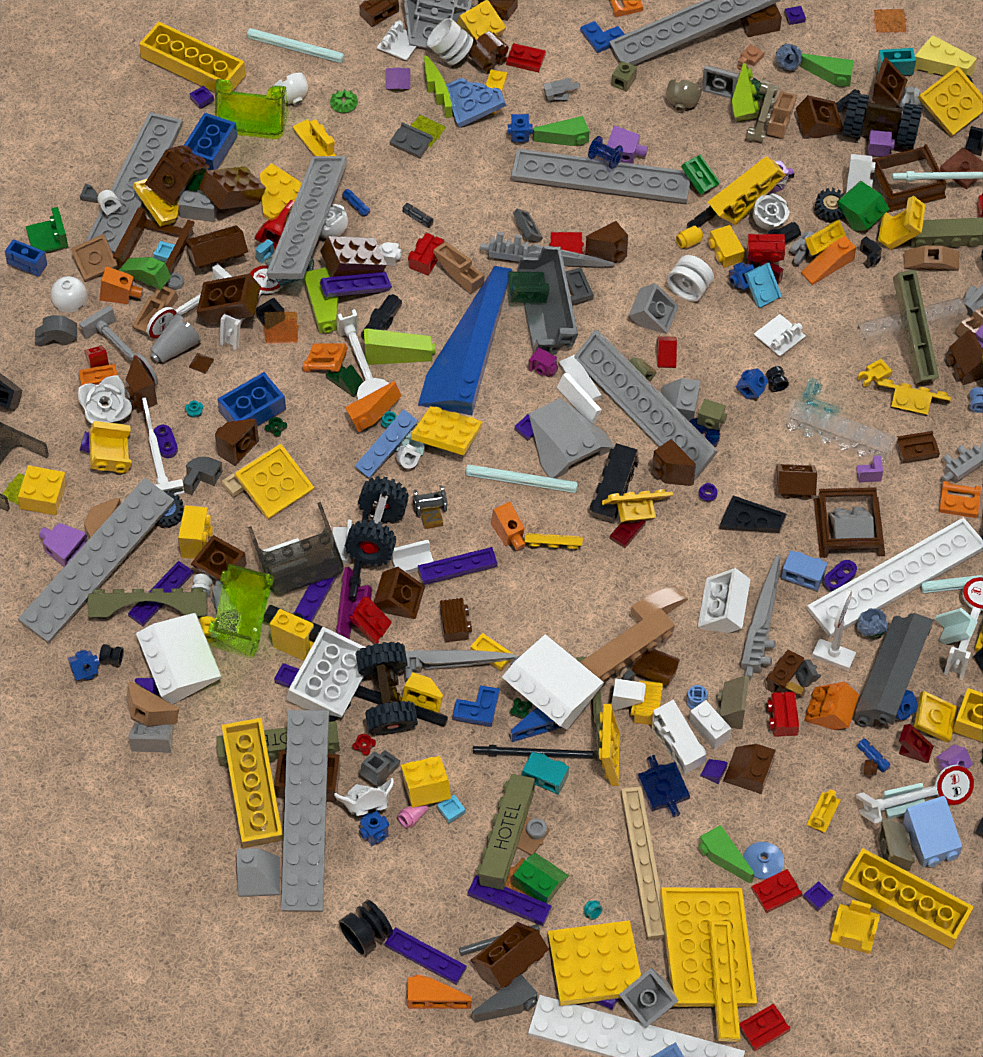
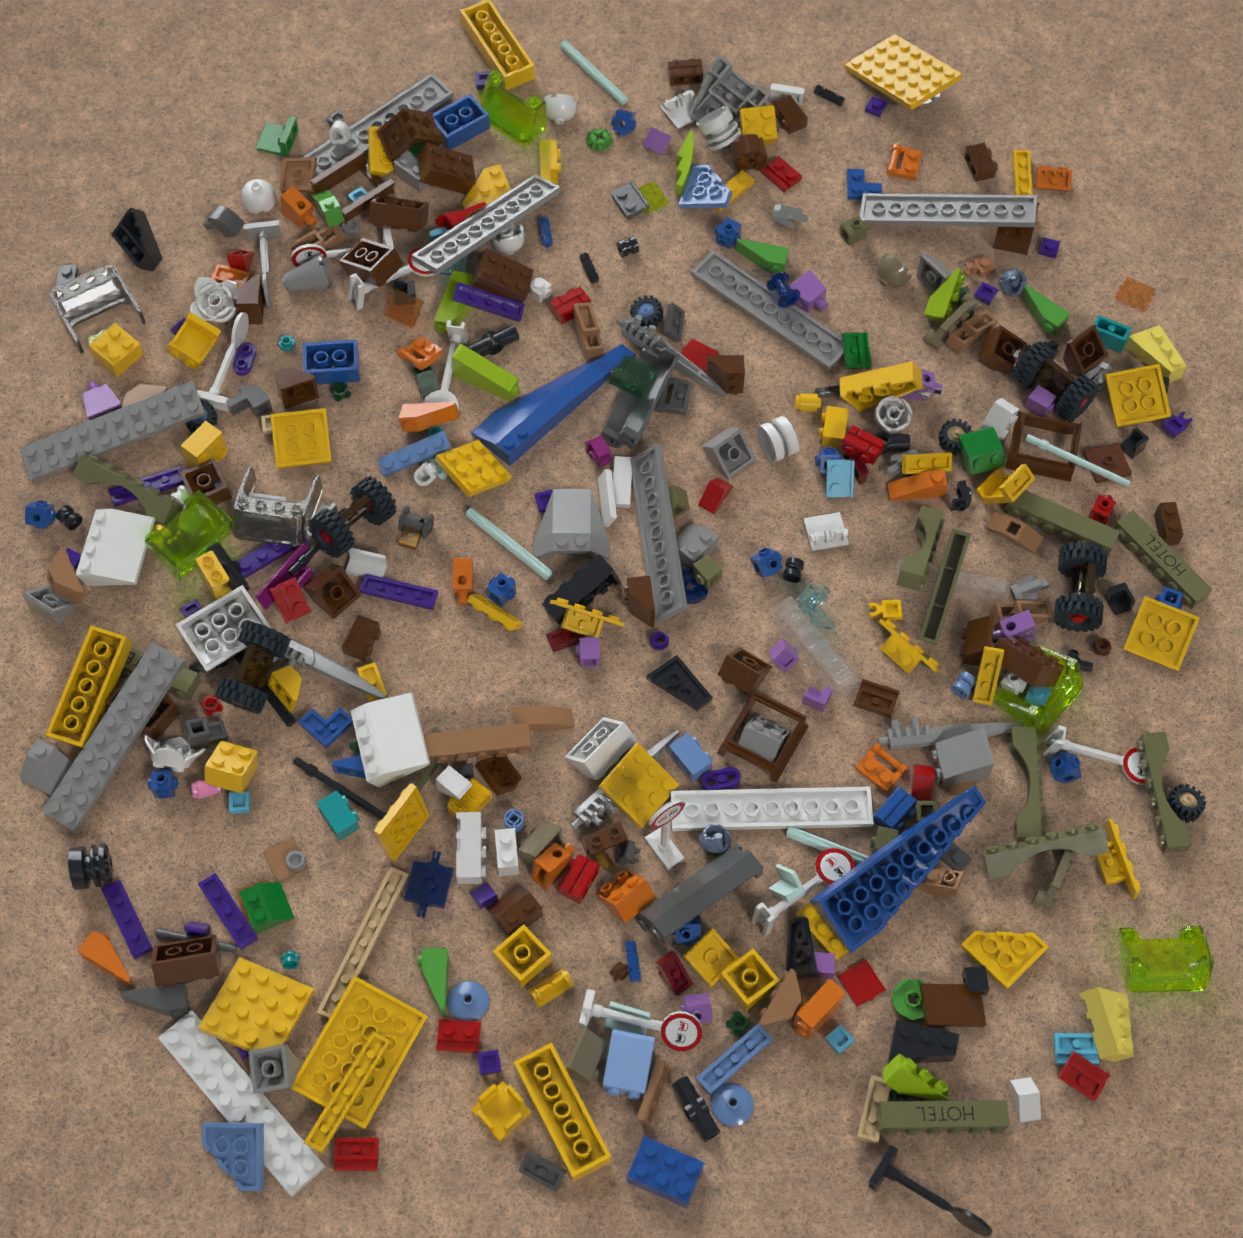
camera: 30 degrees right, 5 degrees up
(26, 257) = (244, 148): blue brick -> none
(201, 363) = (321, 307): reddish brown slope -> none
(353, 71) = (629, 119): none -> blue brick
(438, 182) = (628, 246): none -> black wheel
(494, 929) = (197, 929): none -> dark purple slope
(496, 223) = (649, 309): none -> black wheel
(507, 831) = (265, 849): olive brick -> none
(546, 517) = (501, 589): none -> blue brick
(657, 530) = (588, 652): none -> medium lavender brick
(756, 708) = (551, 864): none -> orange torso
(771, 75) = (986, 293): none -> dark purple plate
(780, 614) = (638, 785): none -> yellow plate
(785, 798) = (522, 956): none -> yellow brick
(819, 450) = (784, 655): none -> medium lavender panel
(885, 323) = (916, 567): none -> olive arch
(923, 953) = (542, 1170): none -> dark grey plate
(966, 844) = (653, 1093): none -> medium nougat tile

